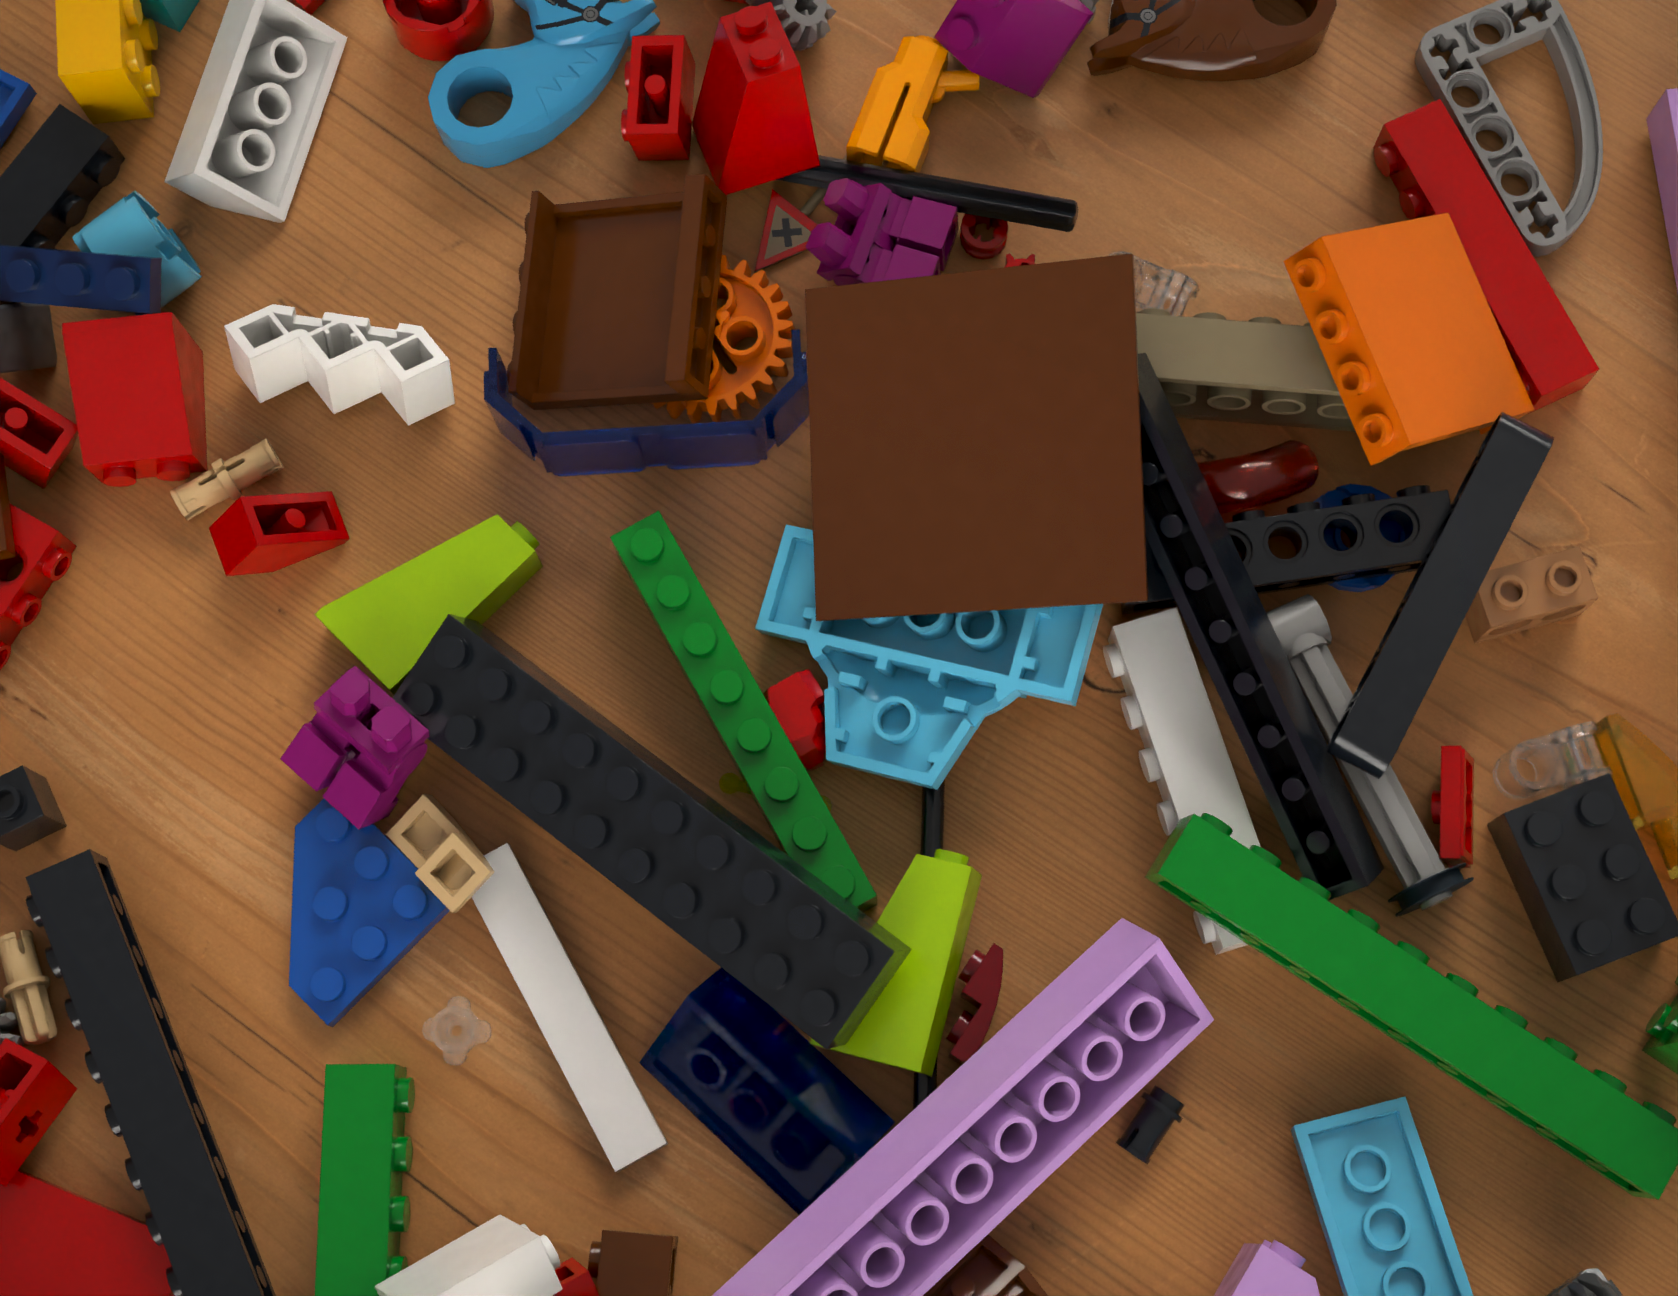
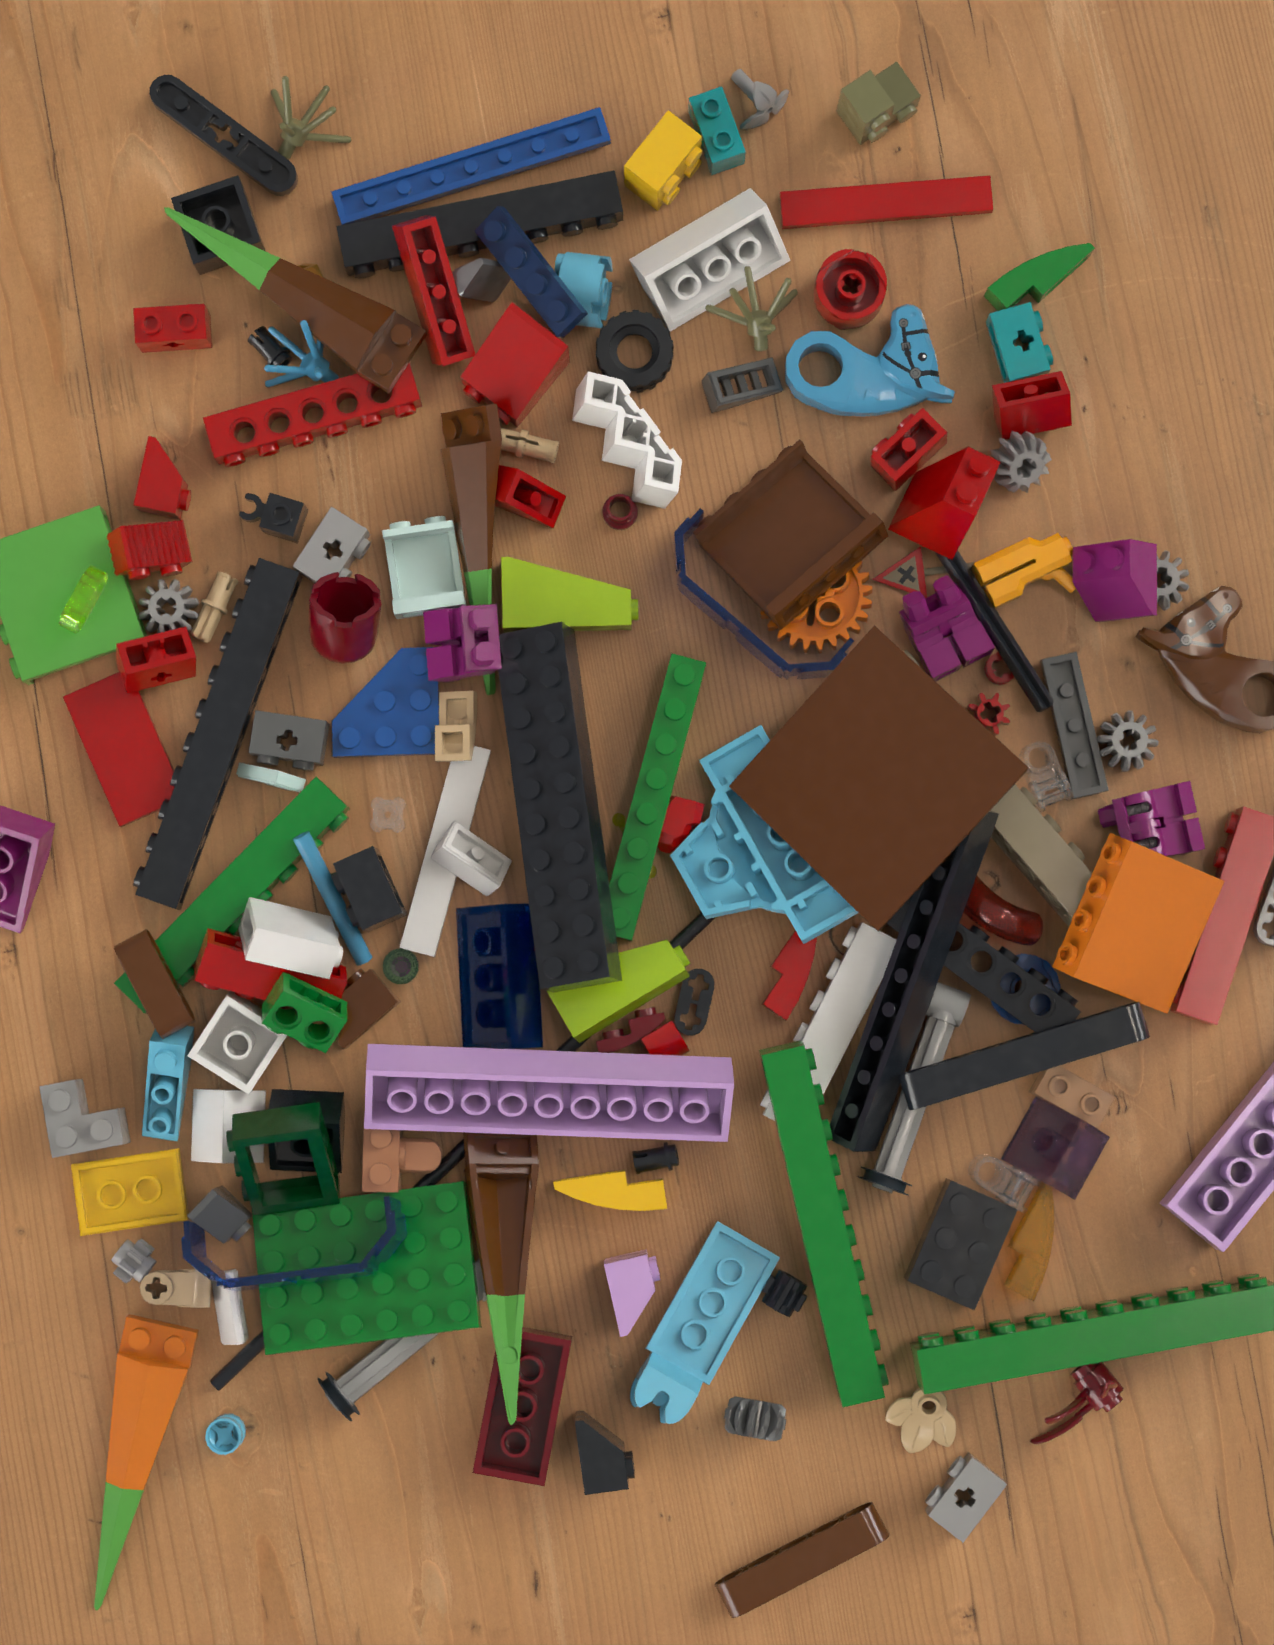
camera: 40 degrees right, 10 degrees up
(92, 772) = (333, 531): none -> light grey brick
(189, 849) = (344, 617): none -> dark red cylinder
(197, 560) = (471, 474): none -> reddish brown plate
(225, 1057) = (272, 727): none -> dark grey brick
(234, 712) = (423, 567): none -> light aqua panel
(256, 232) = (635, 324): none -> black tyre
(275, 1118) = (271, 777): none -> light aqua tile
(370, 121) = (758, 321): none -> olive plant
(405, 234) = (719, 403): none -> dark grey slope
(416, 462) = (624, 522): none -> dark red piece
(479, 1189) = (332, 898): none -> dark azure piece
(513, 1135) = (369, 890): none -> black brick
(602, 987) = (471, 859): none -> white slope
(638, 1193) = (401, 966): none -> clear green tile
(1026, 894) = (703, 1003): none -> black beam
(1027, 975) = (665, 1041): none -> red brick
(1088, 753) = (794, 966): none -> red slope
(1122, 214) = (1074, 725): none -> dark grey plate
(1144, 1210) = (613, 1192): none -> yellow slope
(1197, 161) = (1115, 734): none -> light grey gear
(1300, 215) = (1159, 820): none -> magenta hips
(1454, 806) = (936, 1156): red plate -> none
(1454, 1133) = (784, 1293): none -> black gear
(1569, 668) = (1055, 1147): none -> slope

